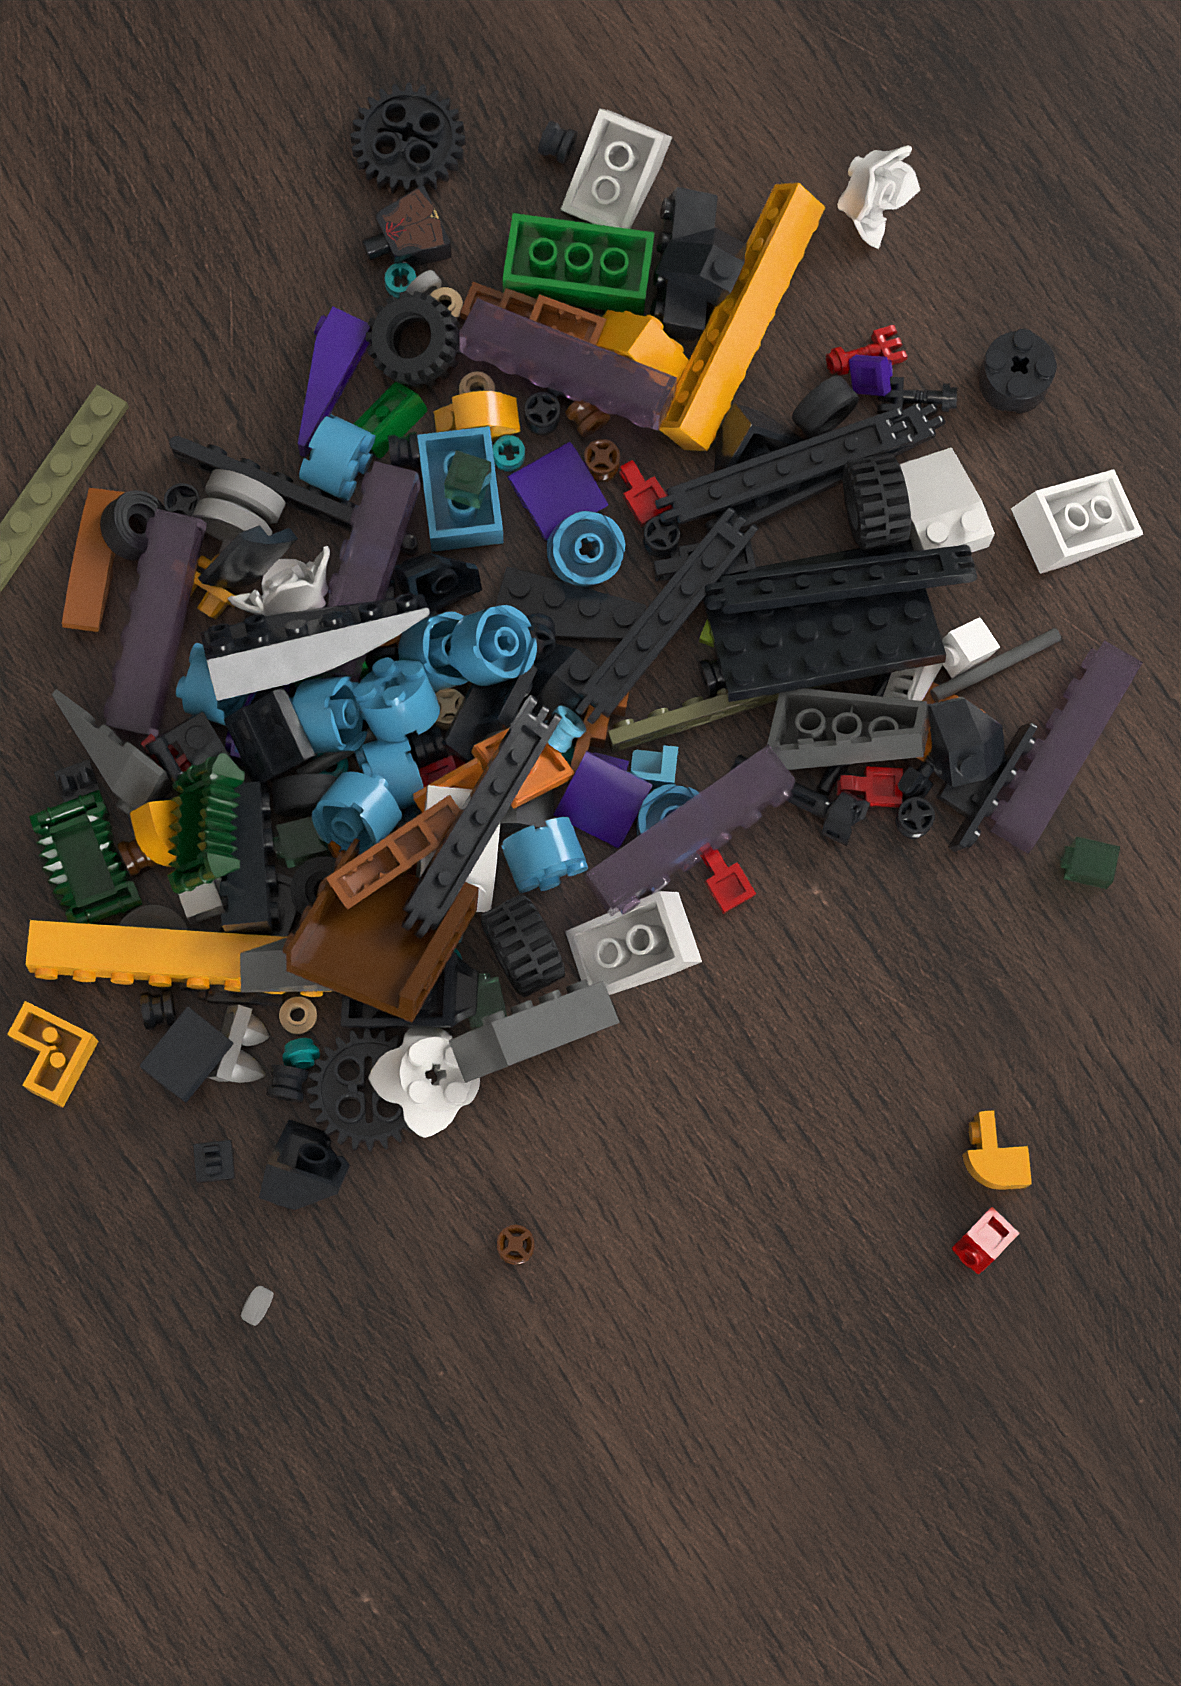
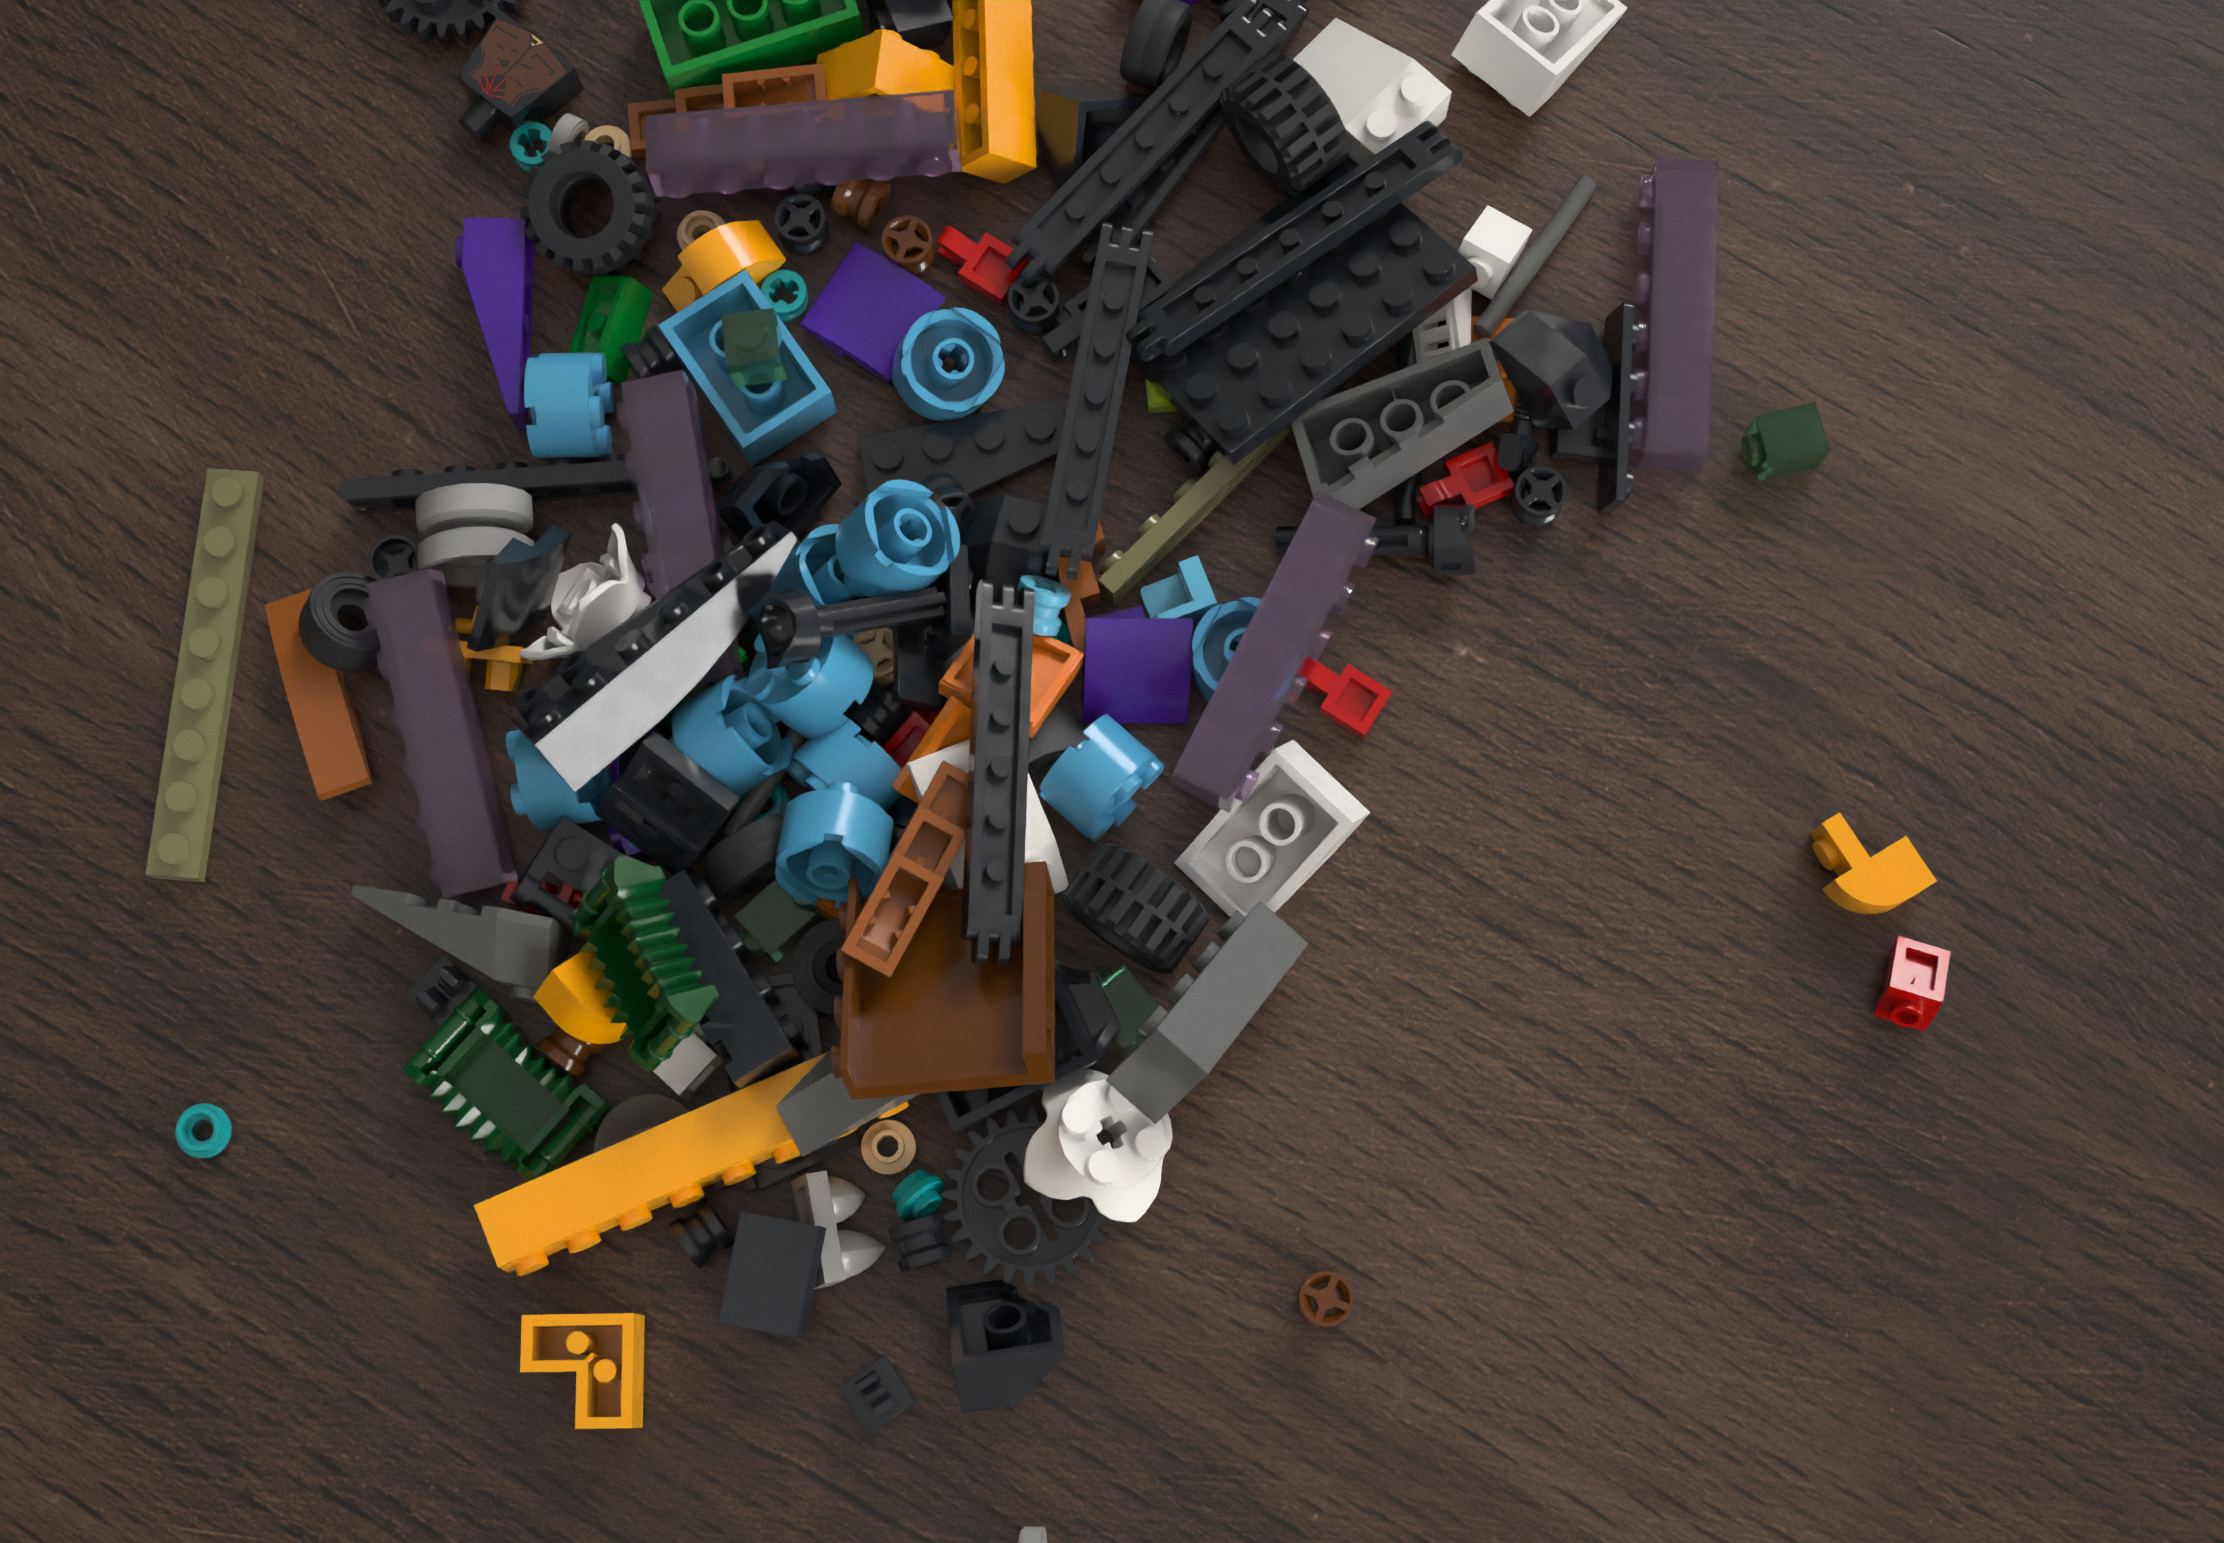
camera: 20 degrees left, 0 degrees up
(400, 668) = (794, 626): none -> black piece

